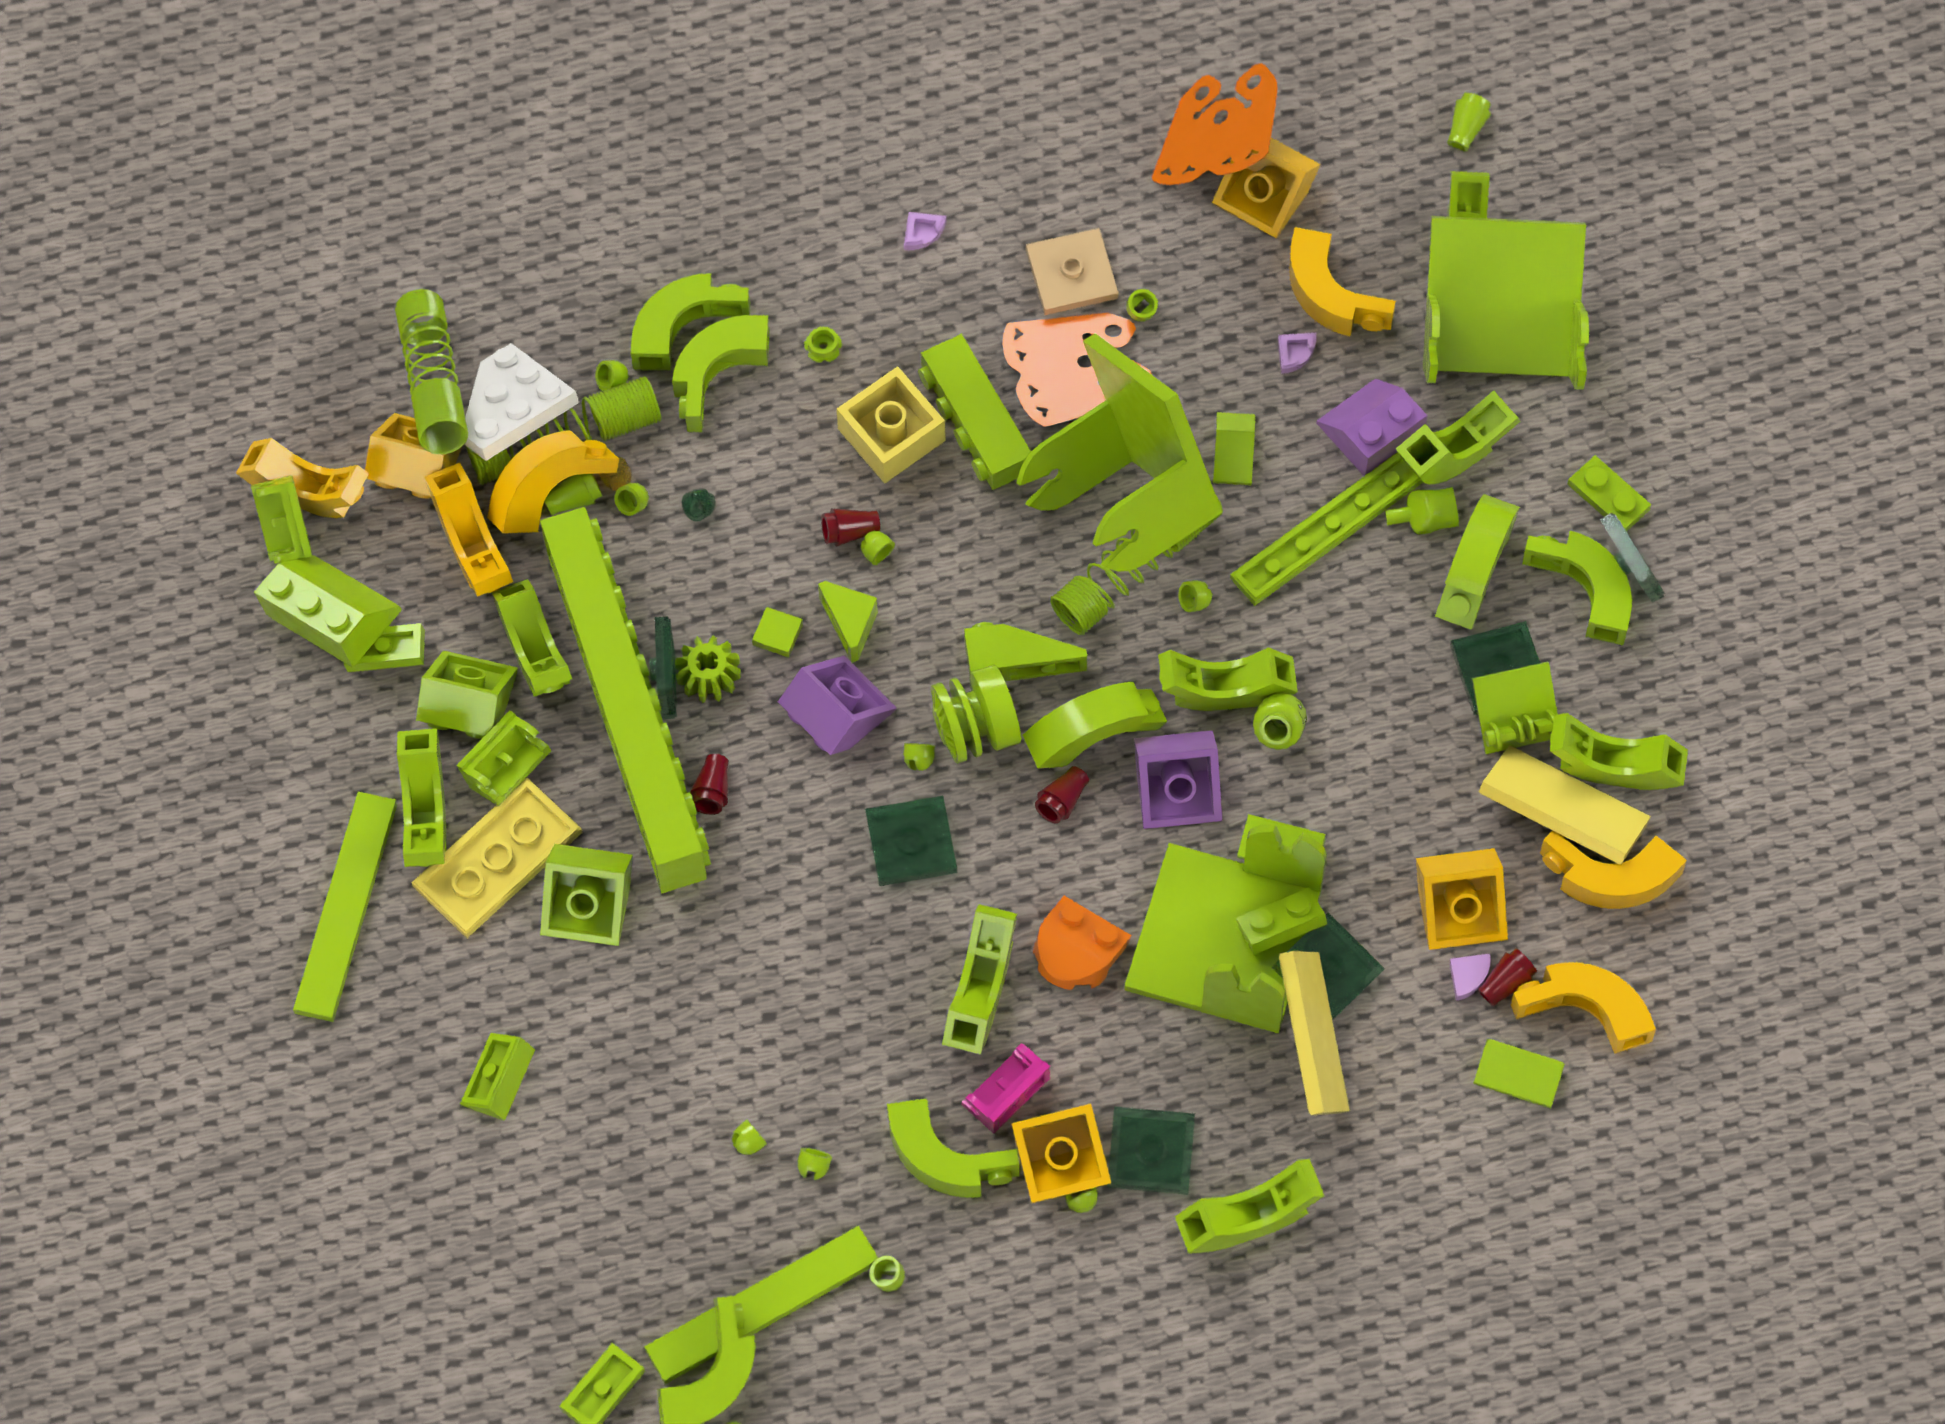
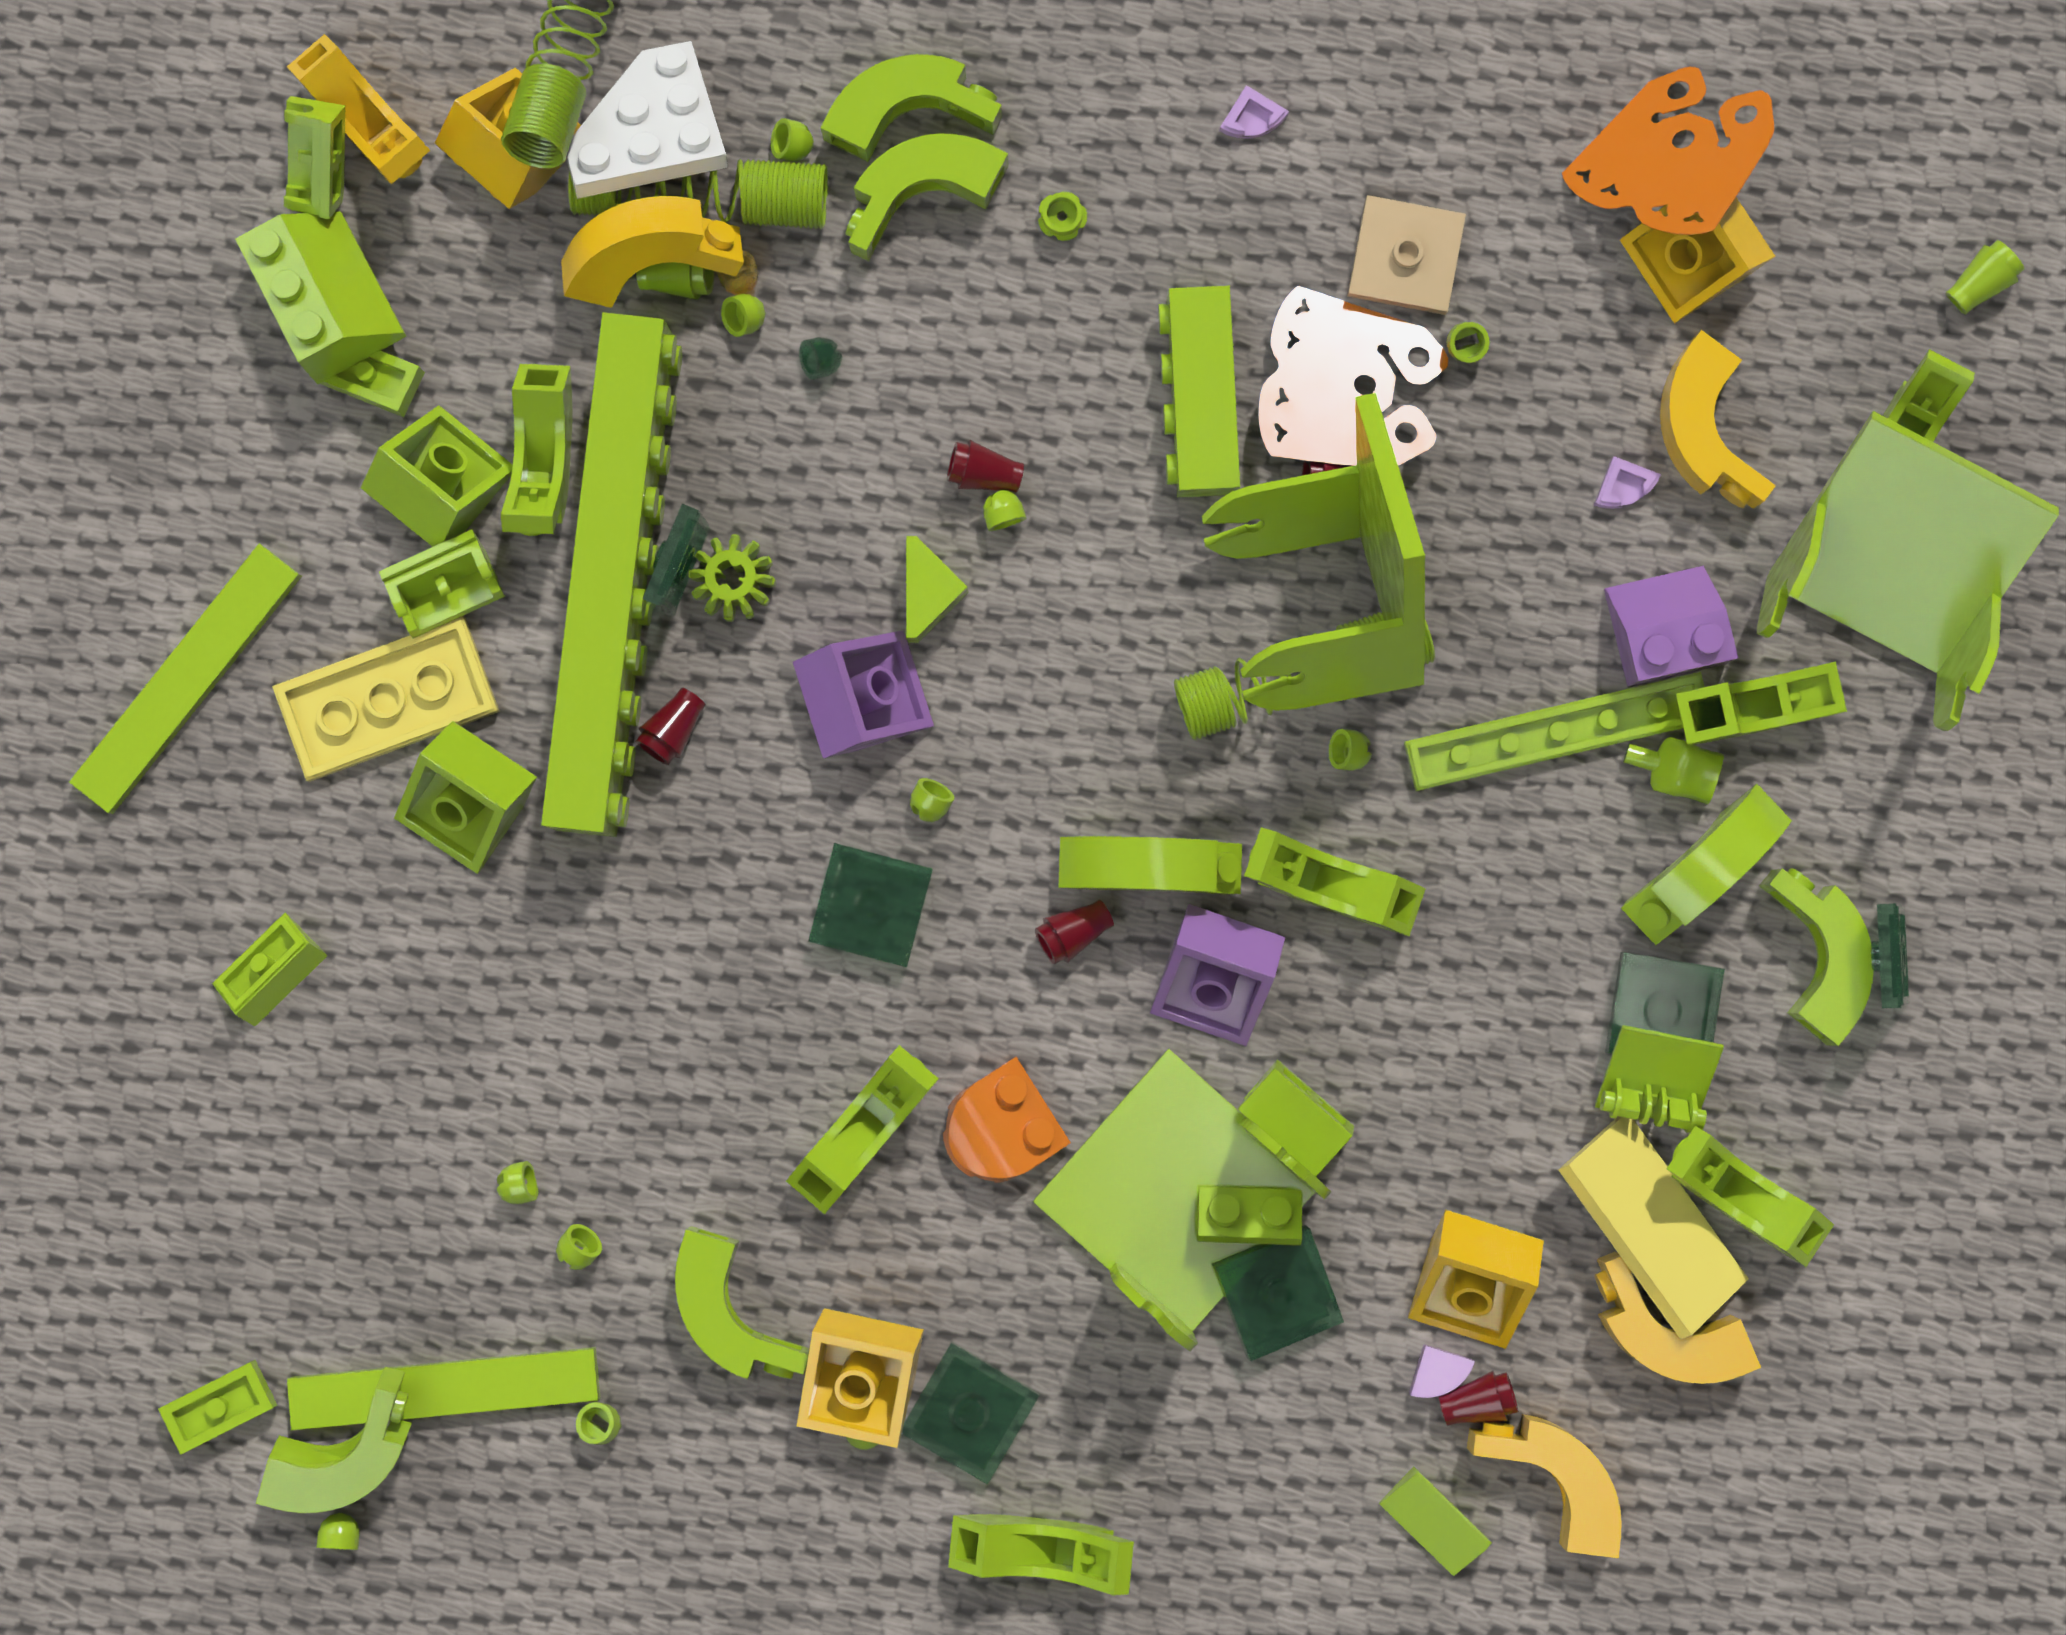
camera: 25 degrees right, 20 degrees up
(422, 797) = (329, 586): lime arch -> none
(467, 530) = (527, 274): yellow arch -> none
(777, 632) = (837, 565): lime tile -> none
(891, 424) = (1090, 364): light yellow brick -> none
(975, 714) = (1012, 791): lime wheel -> none
(1008, 1088) = (837, 1262): dark pink hinge -> none
(1020, 652) = (1092, 723): lime slope -> none
(1234, 448) = (1490, 578): lime slope -> none
(1279, 721) = (1370, 963): lime head -> none
(1314, 1032) = (1215, 1386): light yellow tile -> none
(1608, 492) = (1907, 847): lime plate -> none

